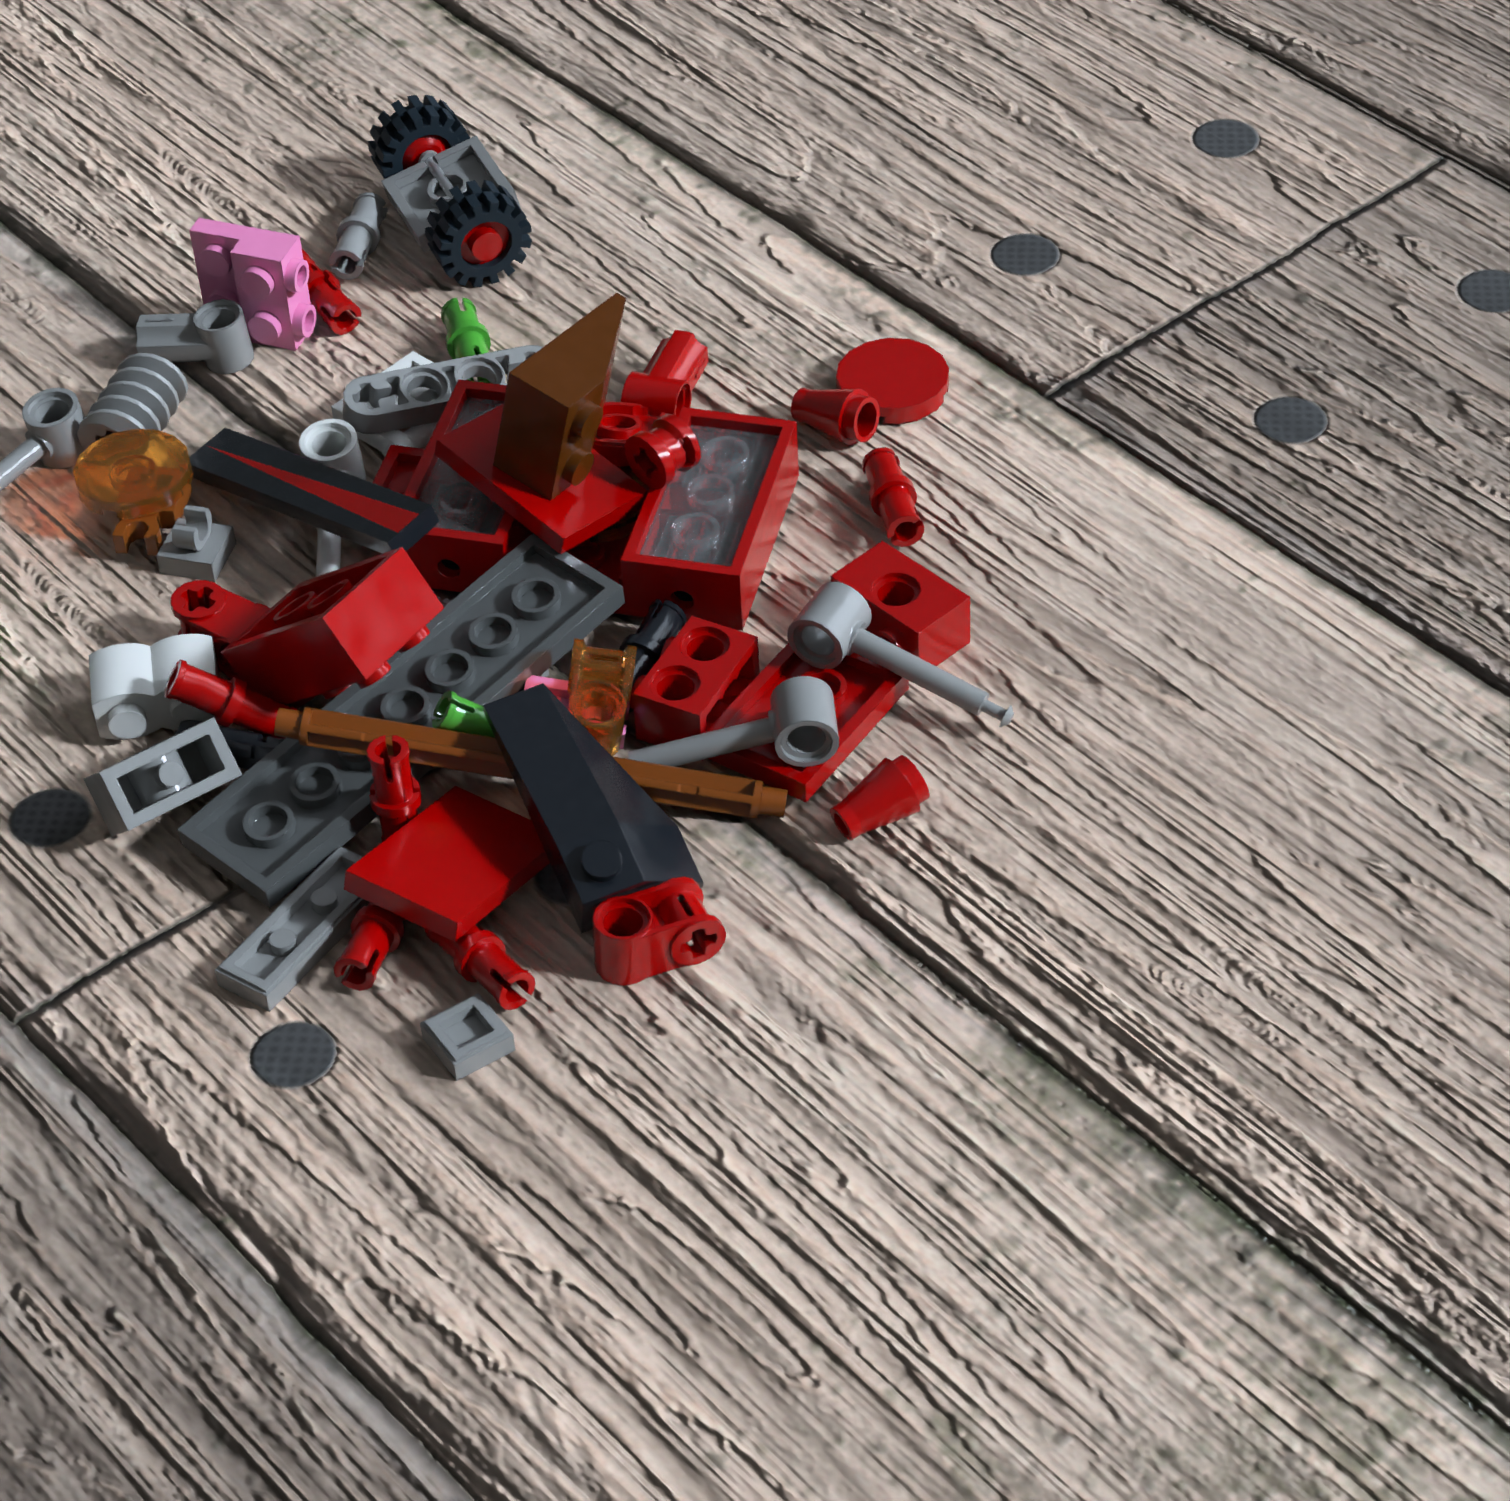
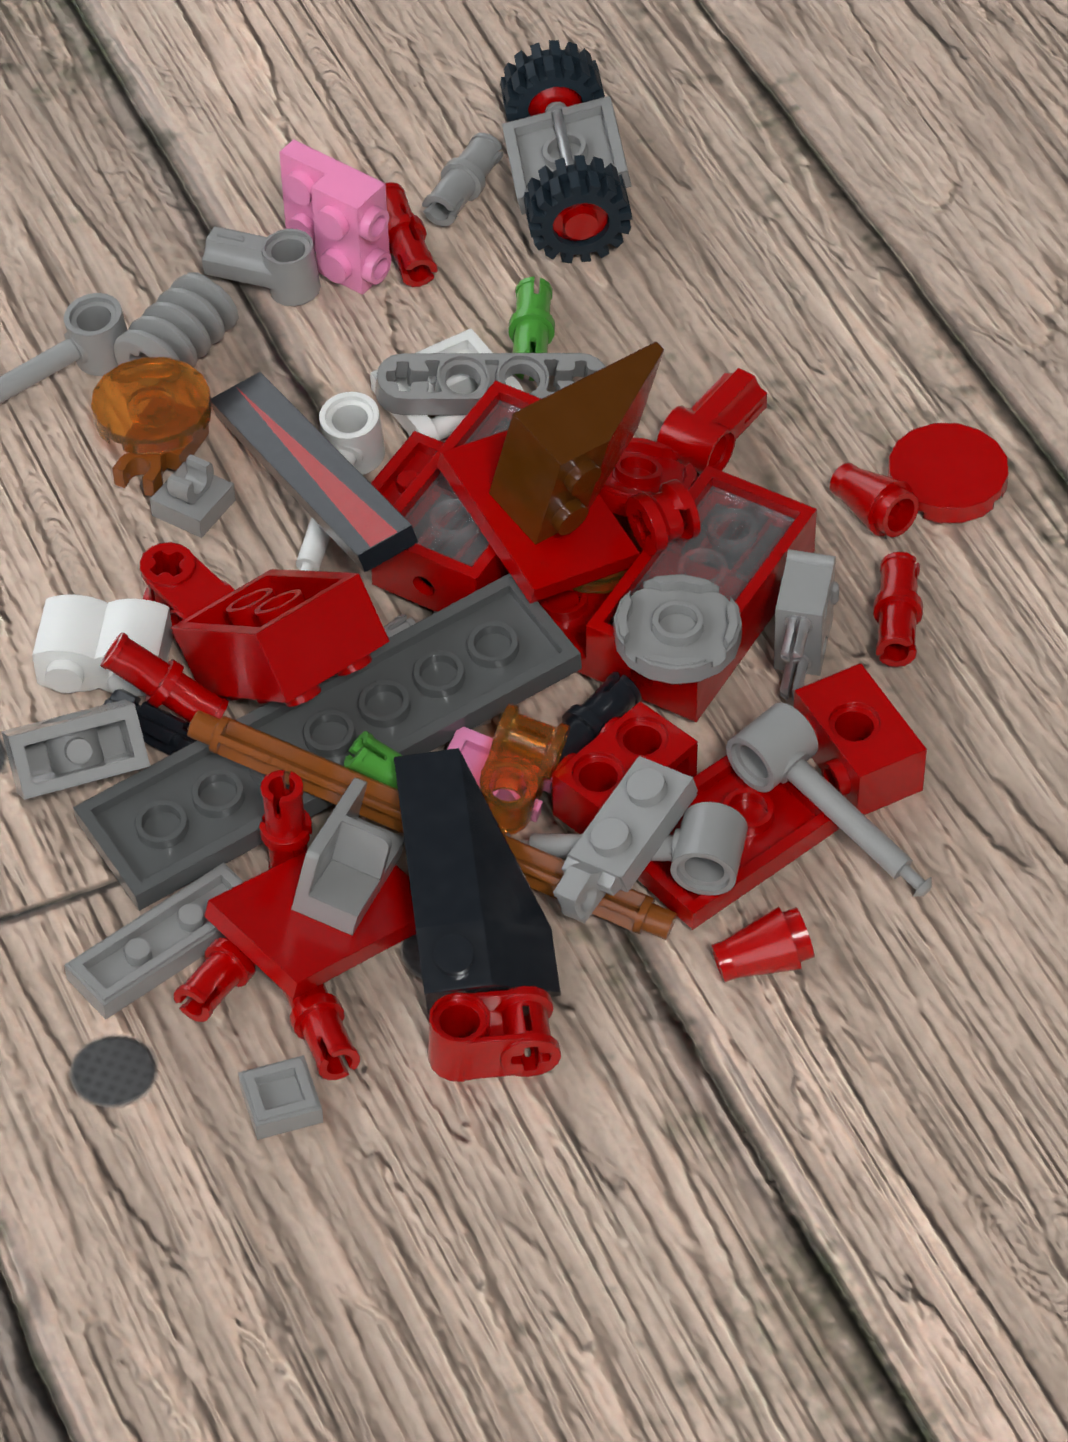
camera: 15 degrees right, 5 degrees up
(467, 812) = (346, 865): none -> light grey panel
(708, 543) = (677, 629): none -> light grey tile
(722, 727) = (623, 836): none -> light grey hinge
(813, 514) = (804, 616): none -> light grey piece

